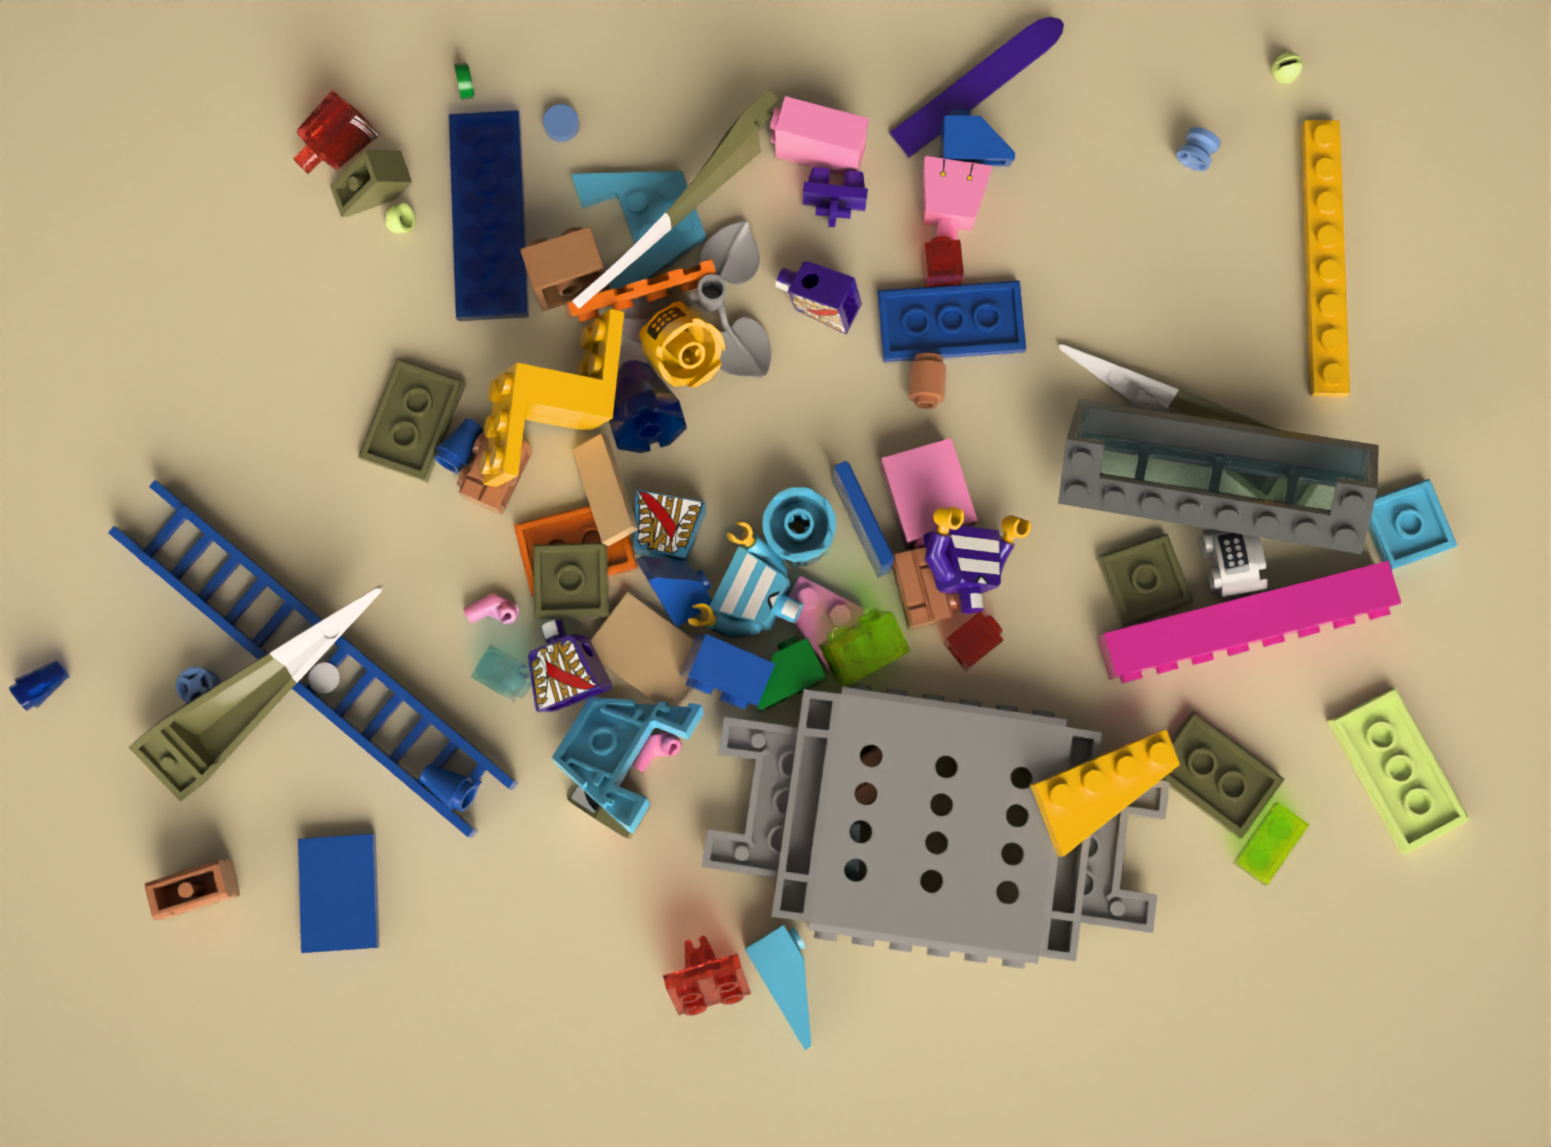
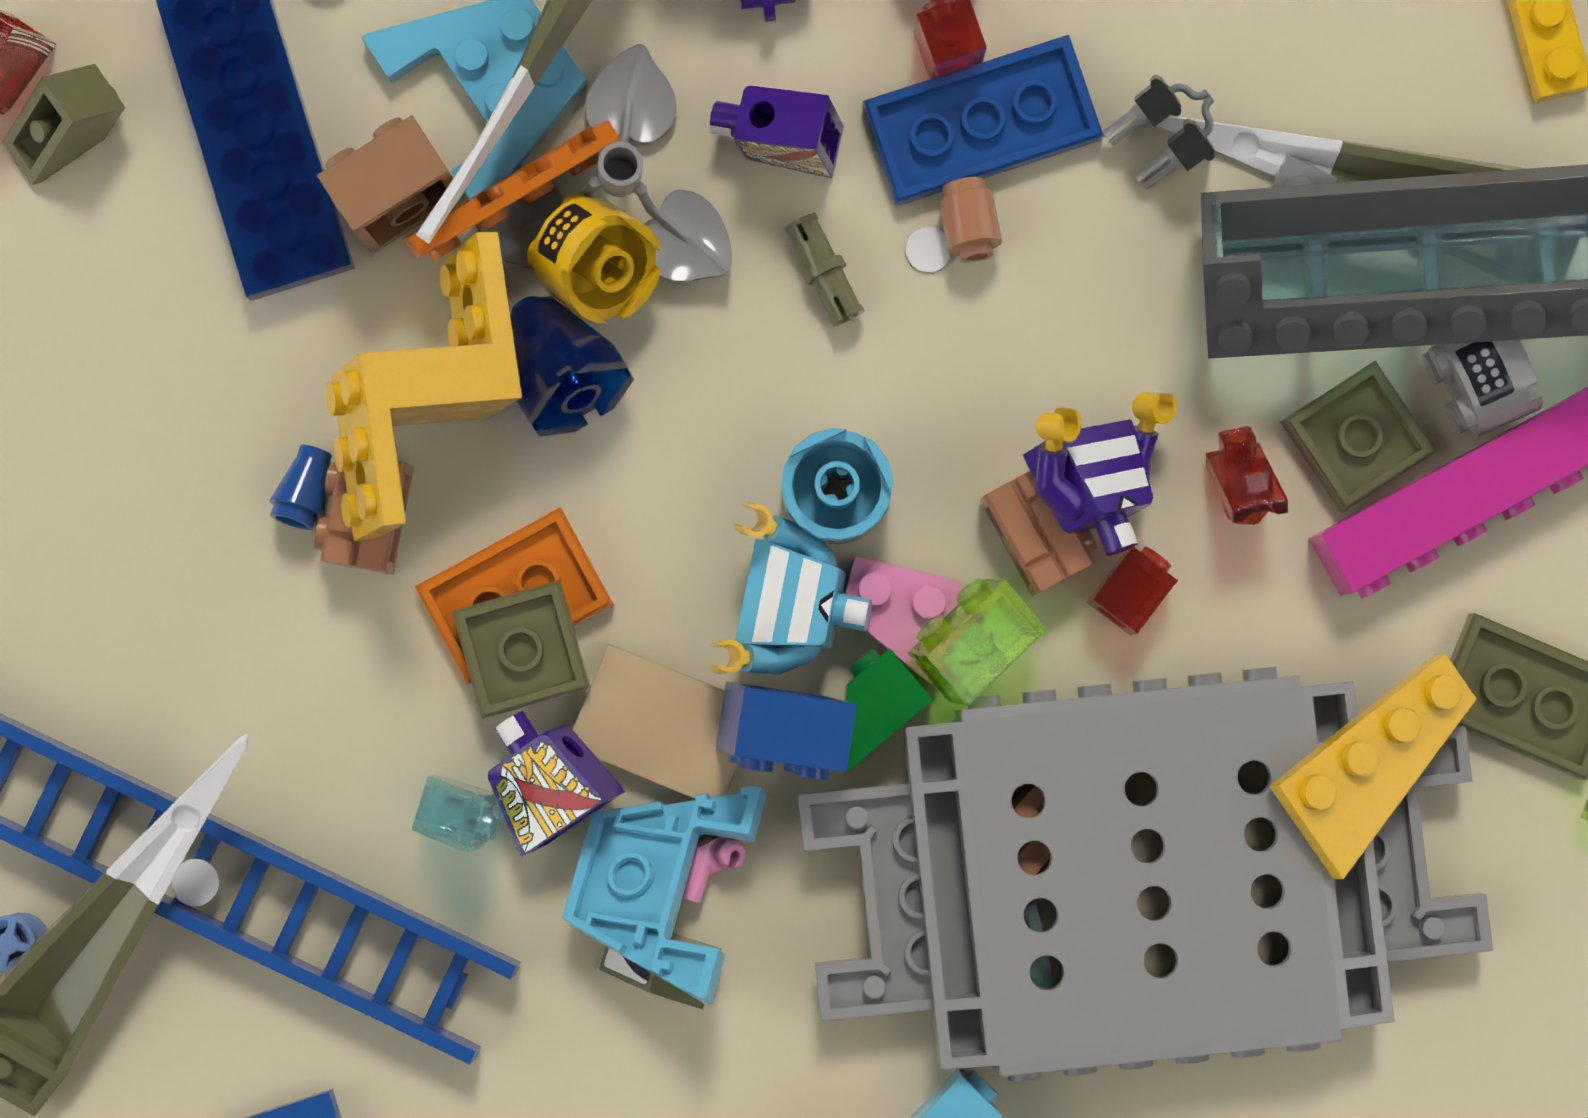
camera: 15 degrees left, 5 degrees up
(393, 217) = (132, 161): yellowish green hinge -> none
(411, 420) = (221, 466): olive tile -> none
(449, 787) = (423, 998): blue cone -> none
(493, 606) = (416, 713): bright pink arm -> none
(605, 490) = (536, 502): tan tile -> none
(666, 525) = (641, 539): torso -> none
(676, 586) = (679, 620): blue slope -> none
(826, 389) = (824, 269): none -> olive pin
(862, 519) = (928, 452): blue tile -> none
(896, 394) = (927, 249): none -> white sticker
(920, 484) = (1005, 381): bright pink brick -> none
(1063, 336) = (1186, 146): none -> piece
(1063, 586) = (1245, 478): none -> clear red hips

